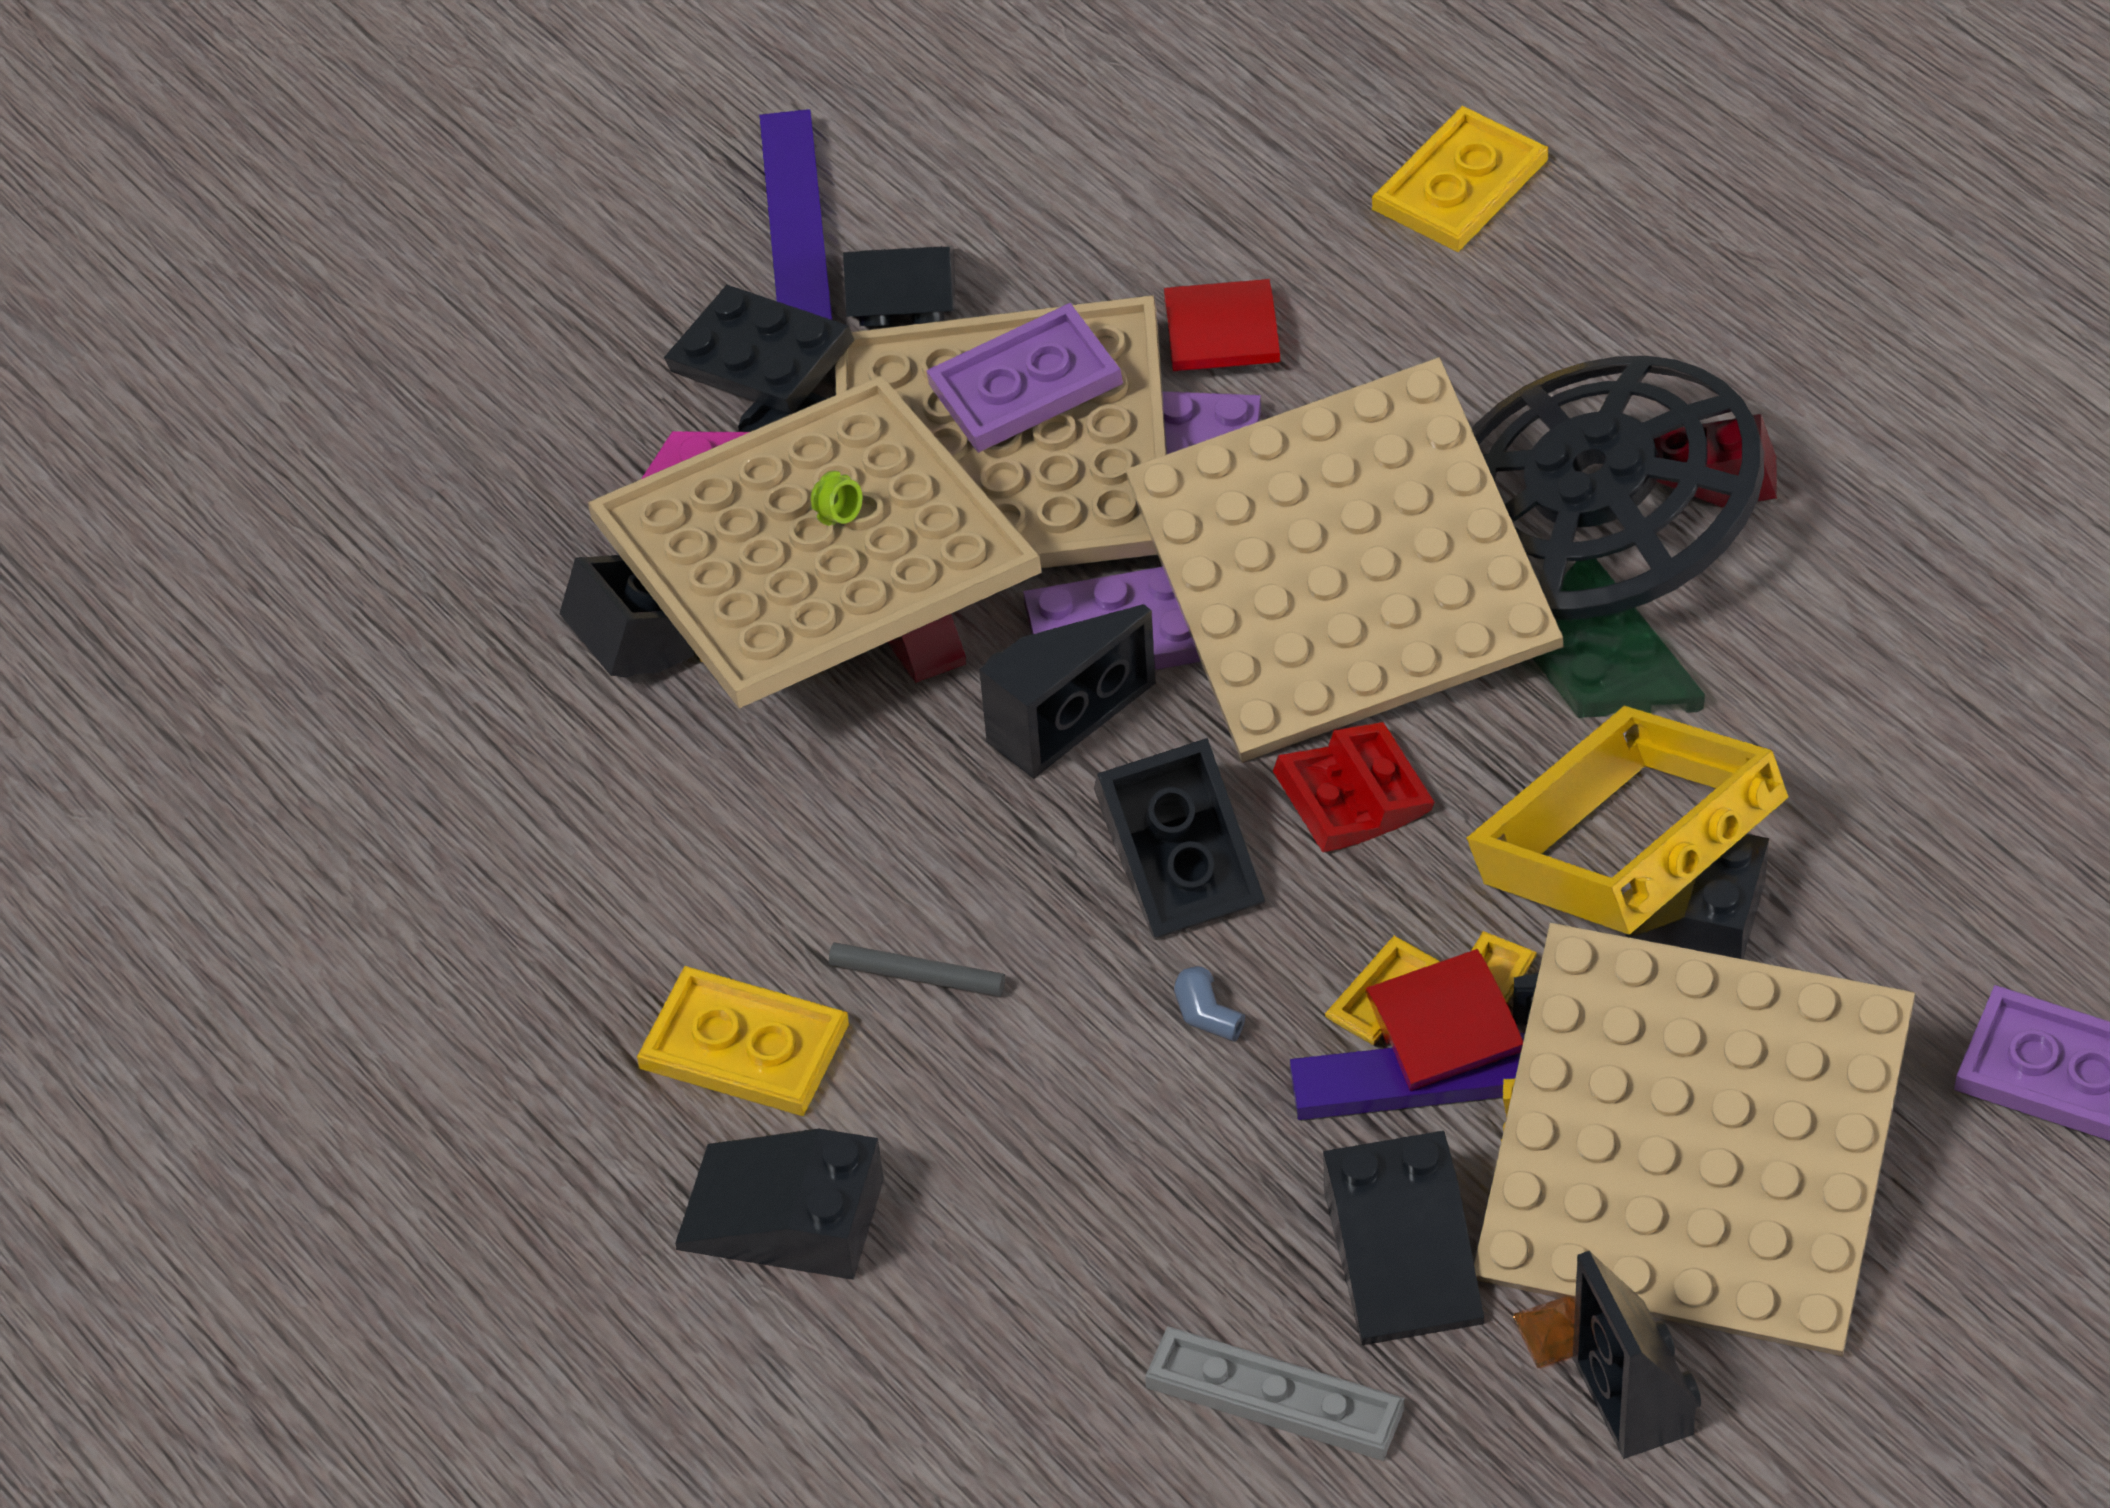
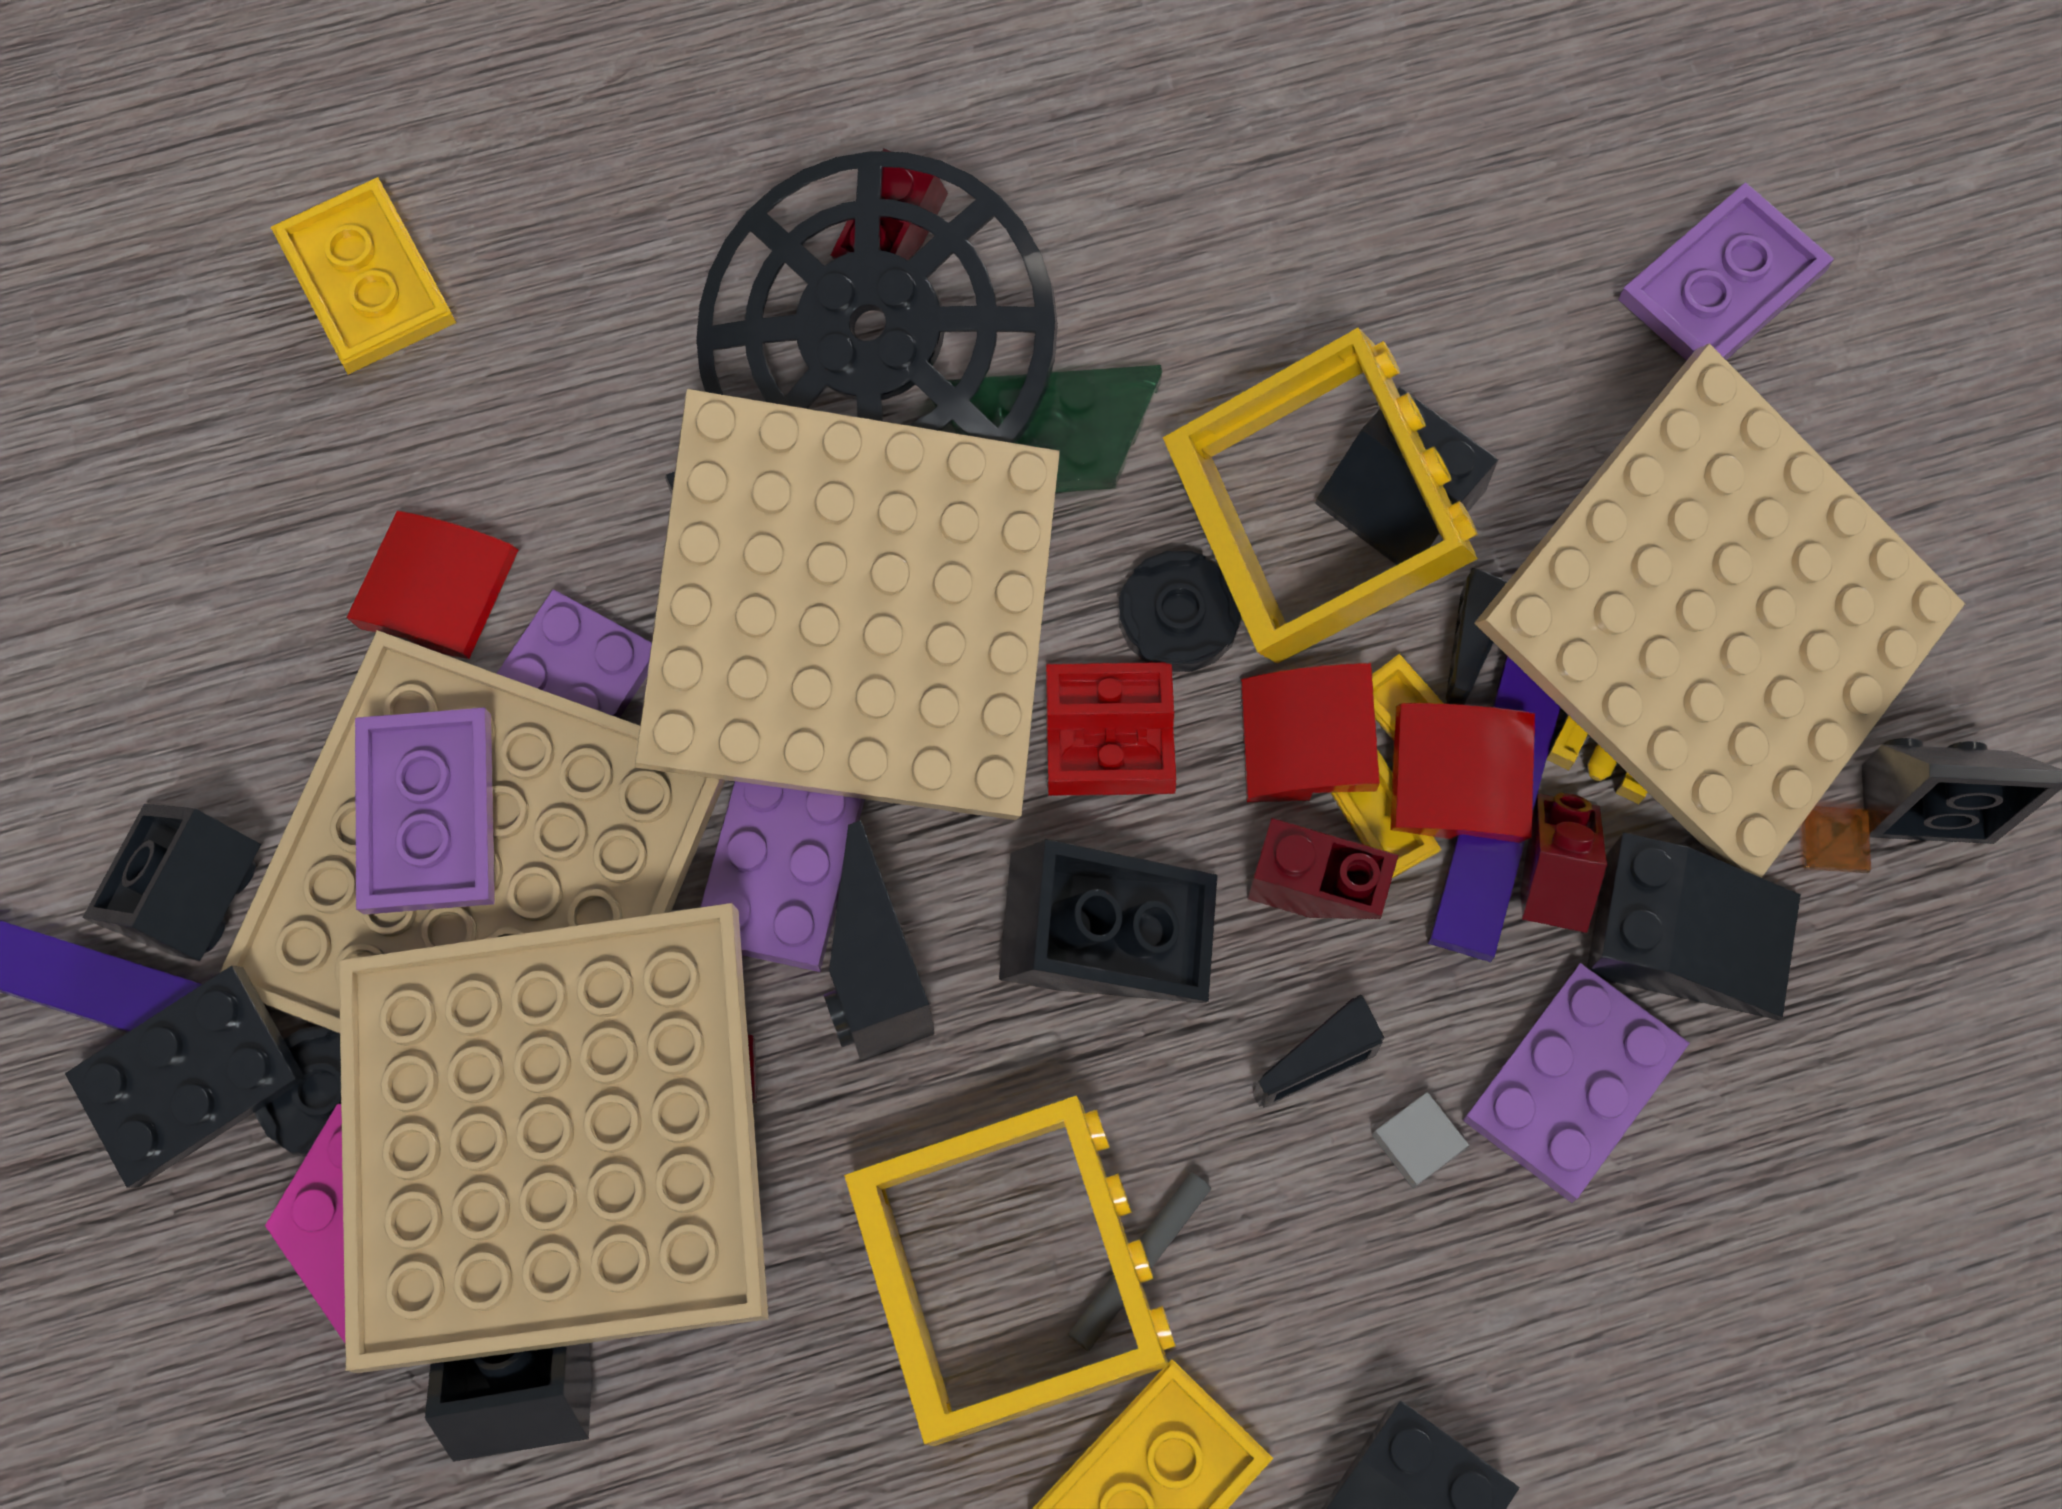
camera: 70 degrees left, 20 degrees up
(819, 814) = (900, 1299): none -> yellow window
(836, 498) = (529, 1087): lime plate -> none
(1113, 1118) = (1420, 1140): none -> light grey tile
(1147, 1016) = (1333, 1047): none -> black slope
(1200, 1008) = (1318, 994): sand blue arm -> none
(1221, 1209) = (1576, 1082): none -> medium lavender plate
(1275, 1393) = (1813, 1128): light grey tile -> none
(1295, 943) = (1321, 874): none -> dark red slope
(1405, 1105) = (1563, 862): none -> dark red slope
(1427, 916) = (1309, 732): none -> red slope
(1477, 785) = (1178, 611): none -> black tile

